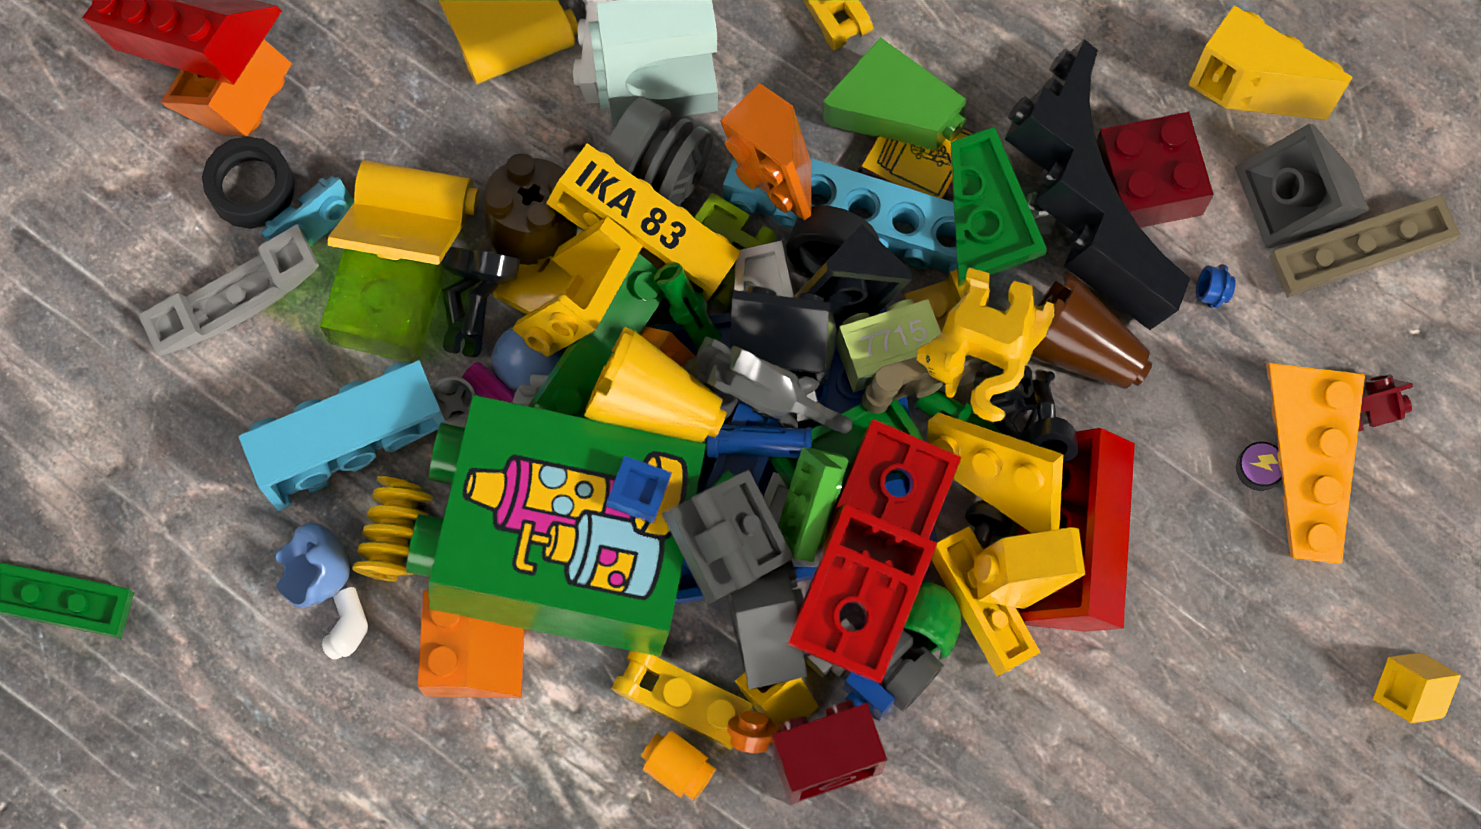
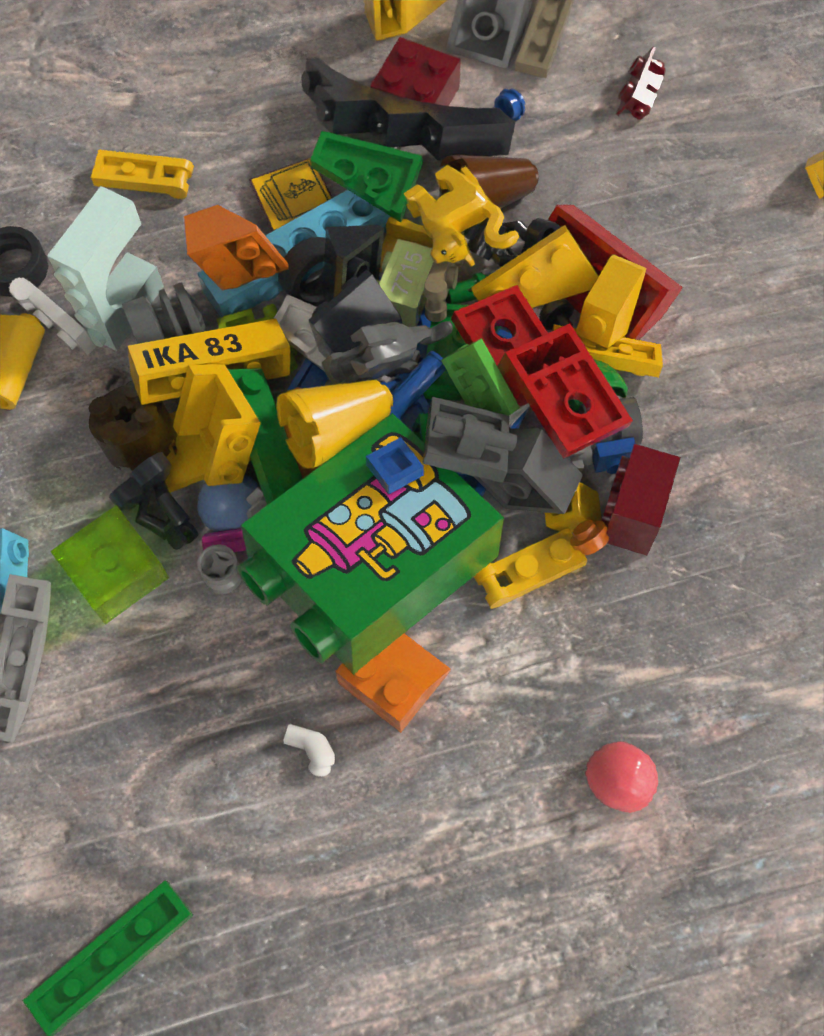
camera: 50 degrees left, 5 degrees down
(313, 566) = (253, 739): medium blue hair -> none
(340, 432) = (180, 647): medium azure wedge -> none
(392, 529) = (272, 668): yellow piece -> none
(405, 212) = (63, 502): yellow door -> none
(675, 288) = (283, 371): green pin -> none
(677, 765) = (575, 599): light orange brick -> none
(895, 100) = (254, 175): bright green slope -> none
(1259, 466) = (636, 158): tile -> none
(1317, 442) = (650, 112): light orange wing -> none

